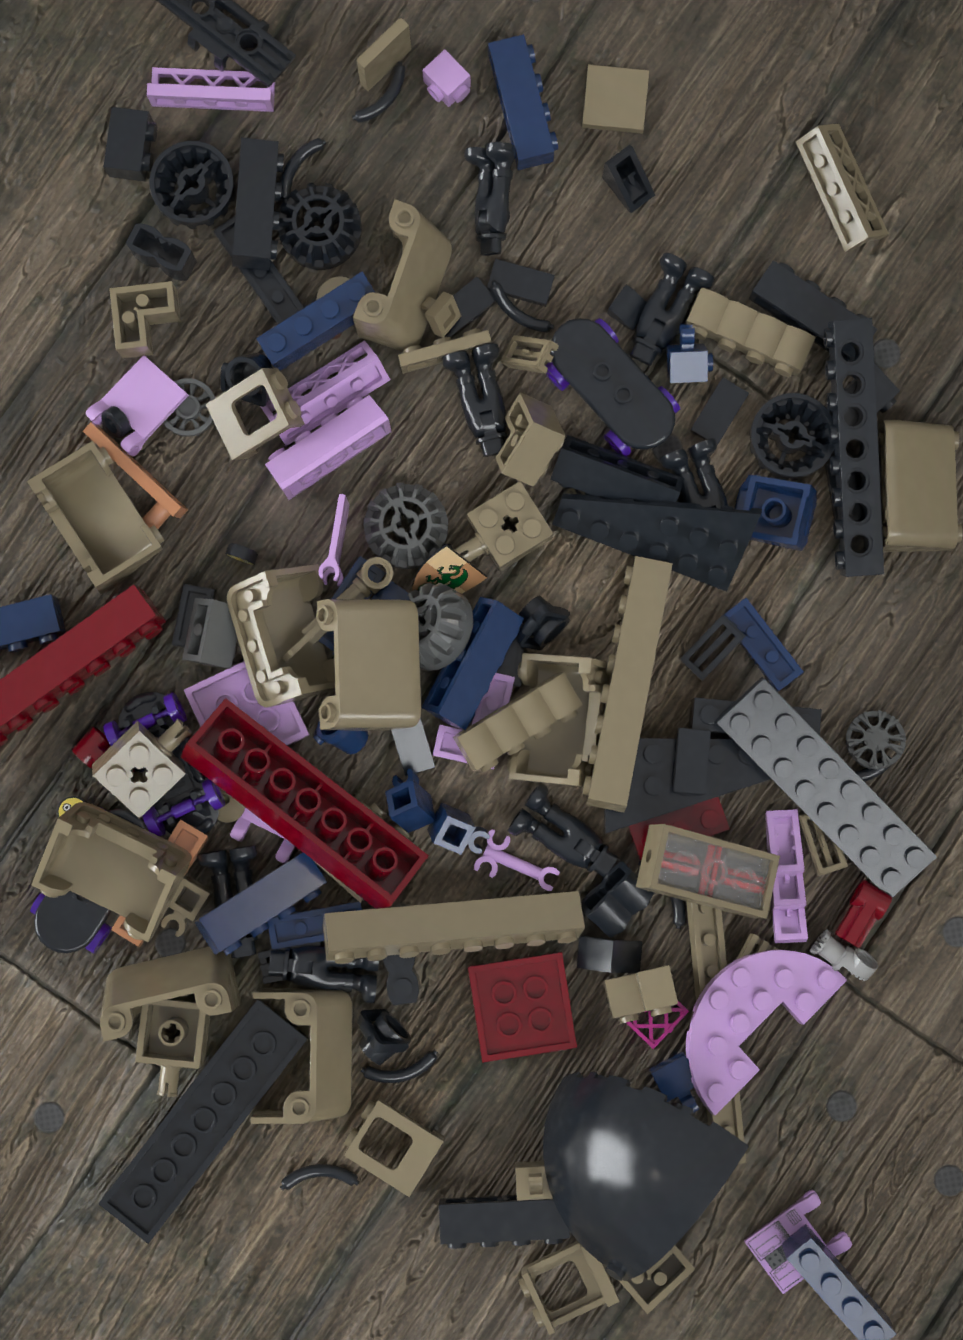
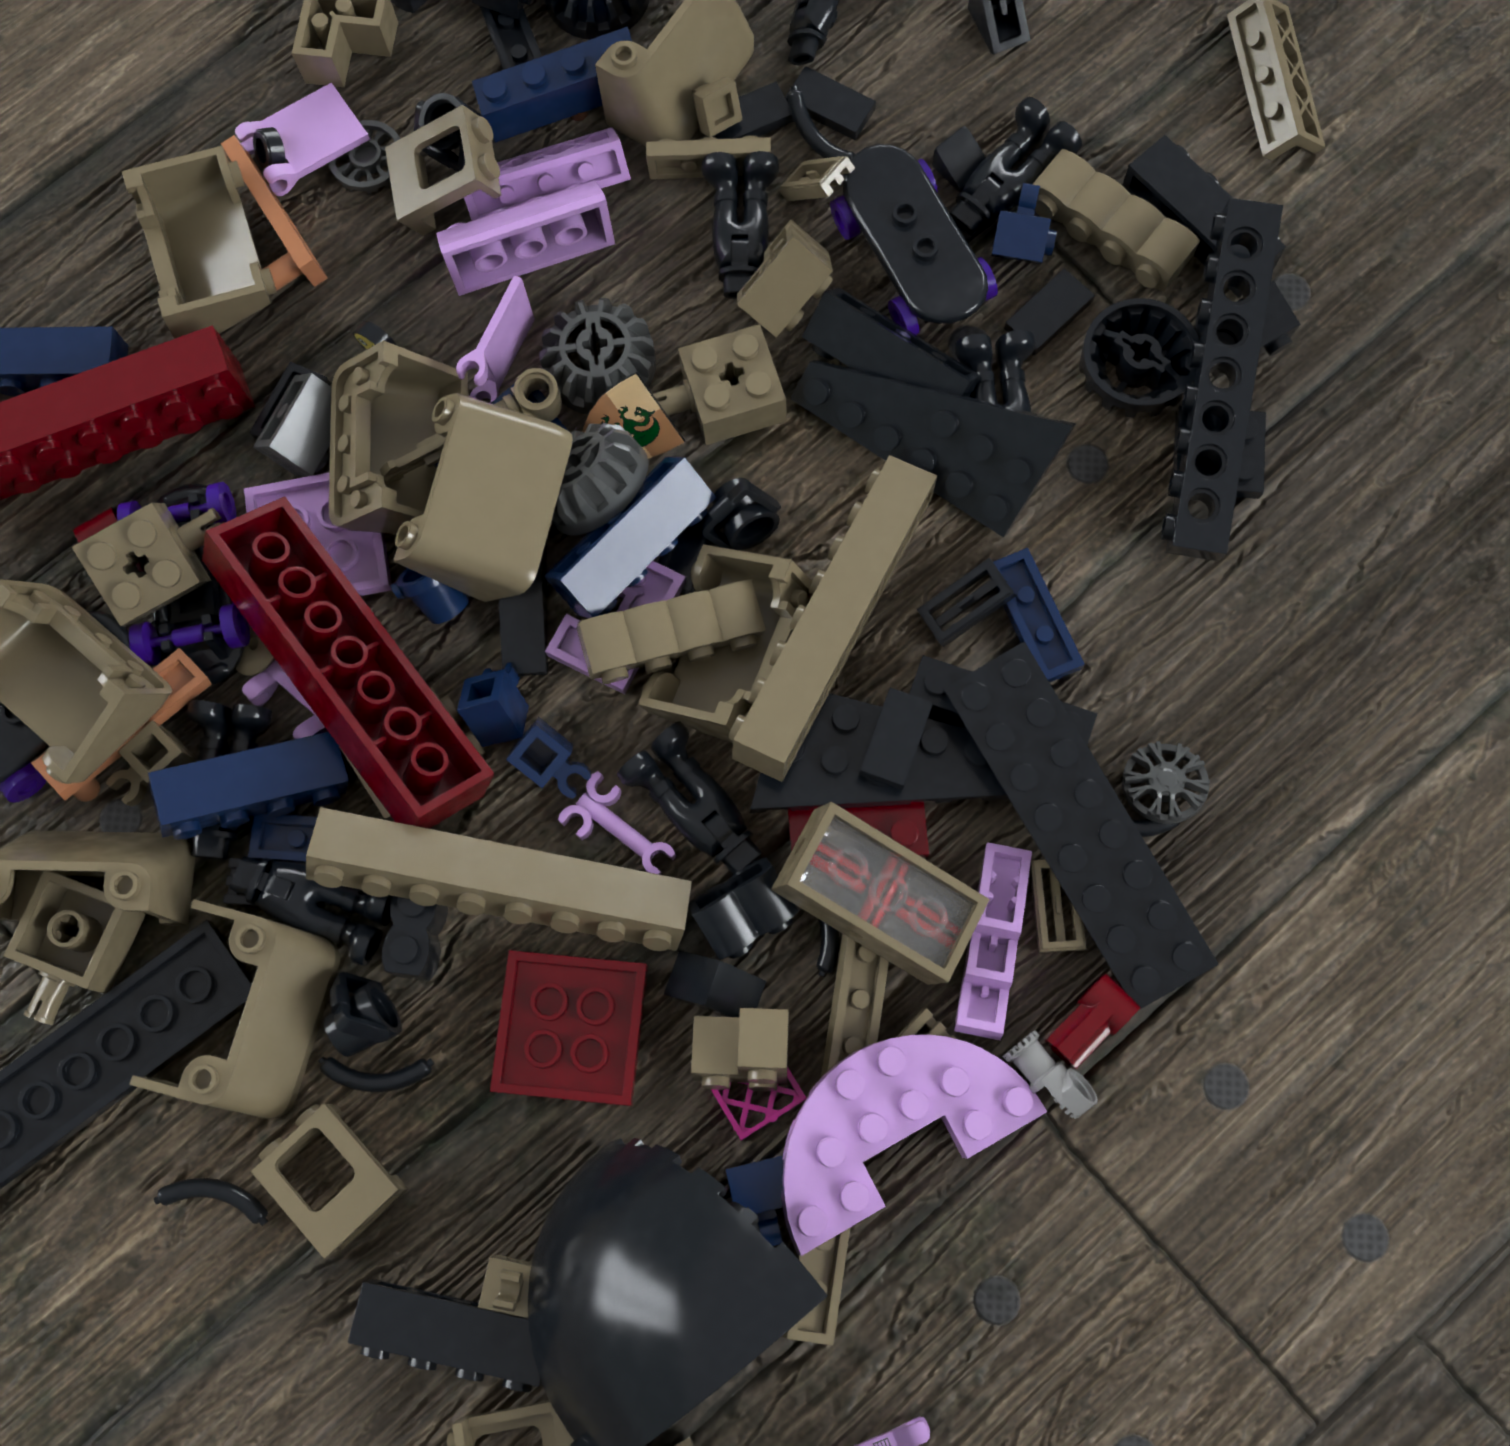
camera: 20 degrees right, 10 degrees down
(785, 510) = (1104, 448): dark blue slope -> none
(918, 486) = (1298, 459): dark tan windscreen -> none

